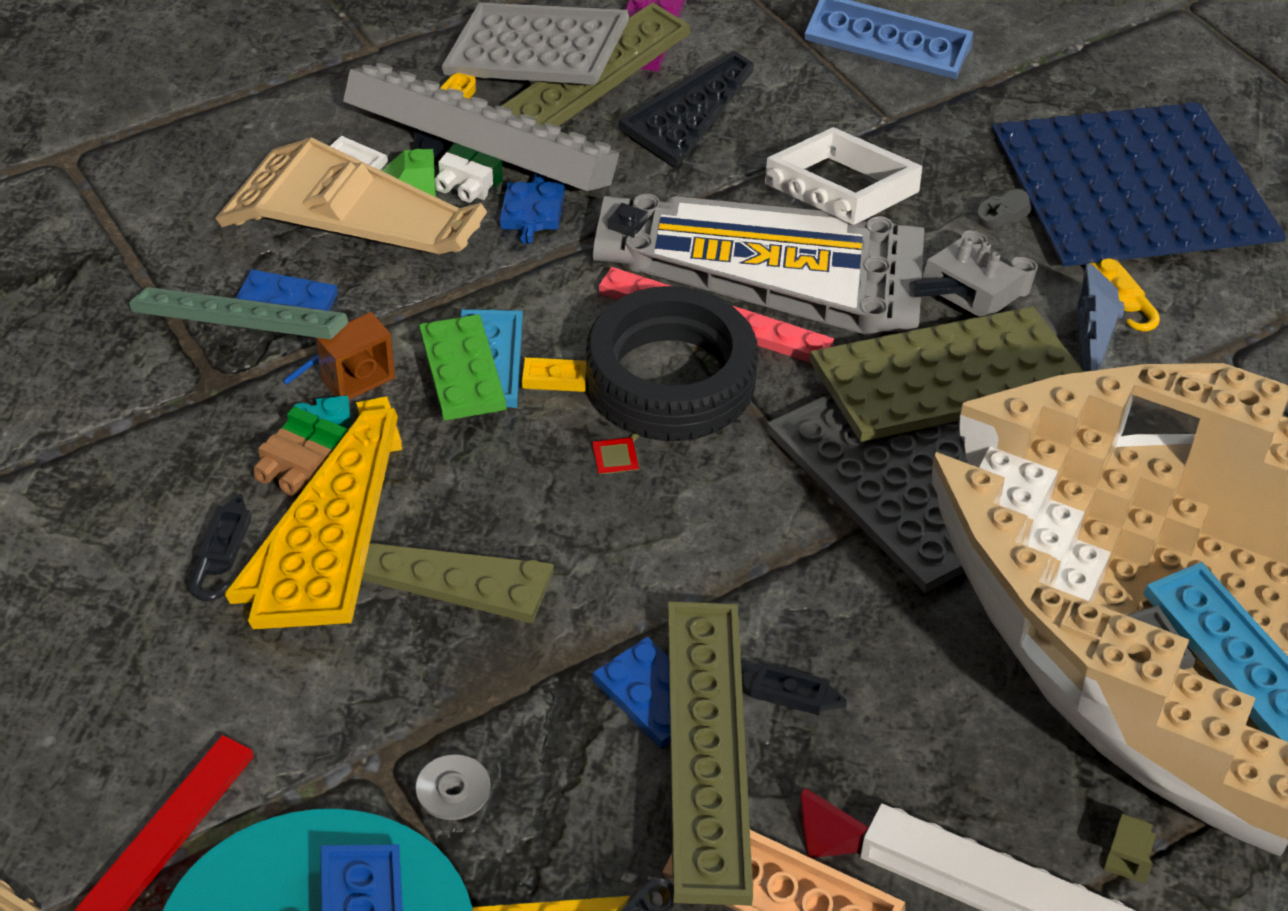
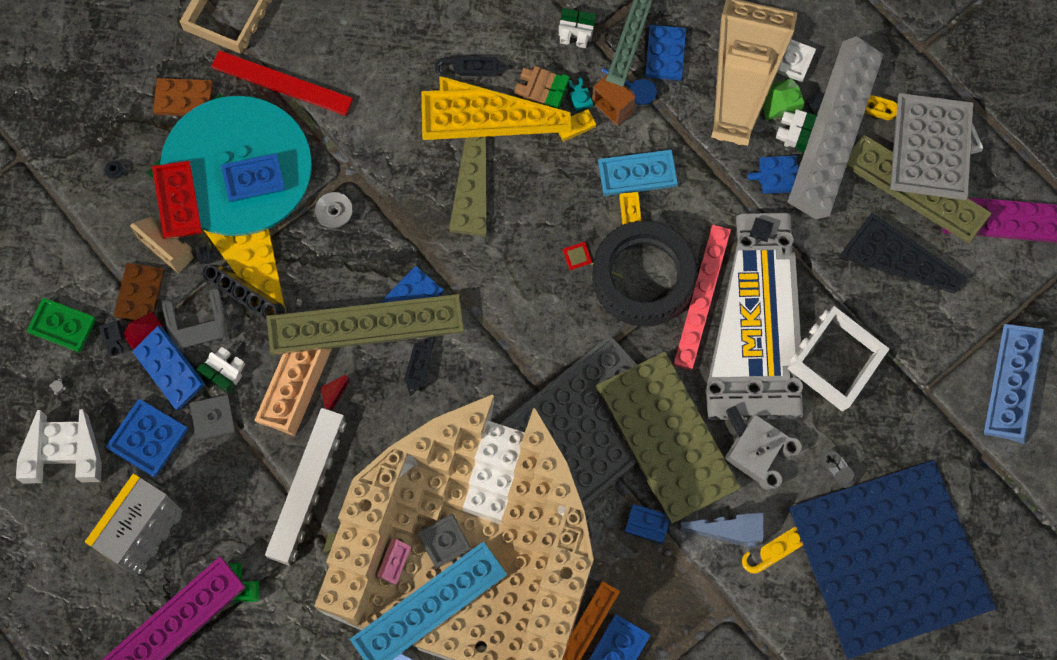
camera: 85 degrees right, 25 degrees up
(197, 397) = (582, 32): none -> white hips
(462, 367) = (620, 158): bright green plate -> none

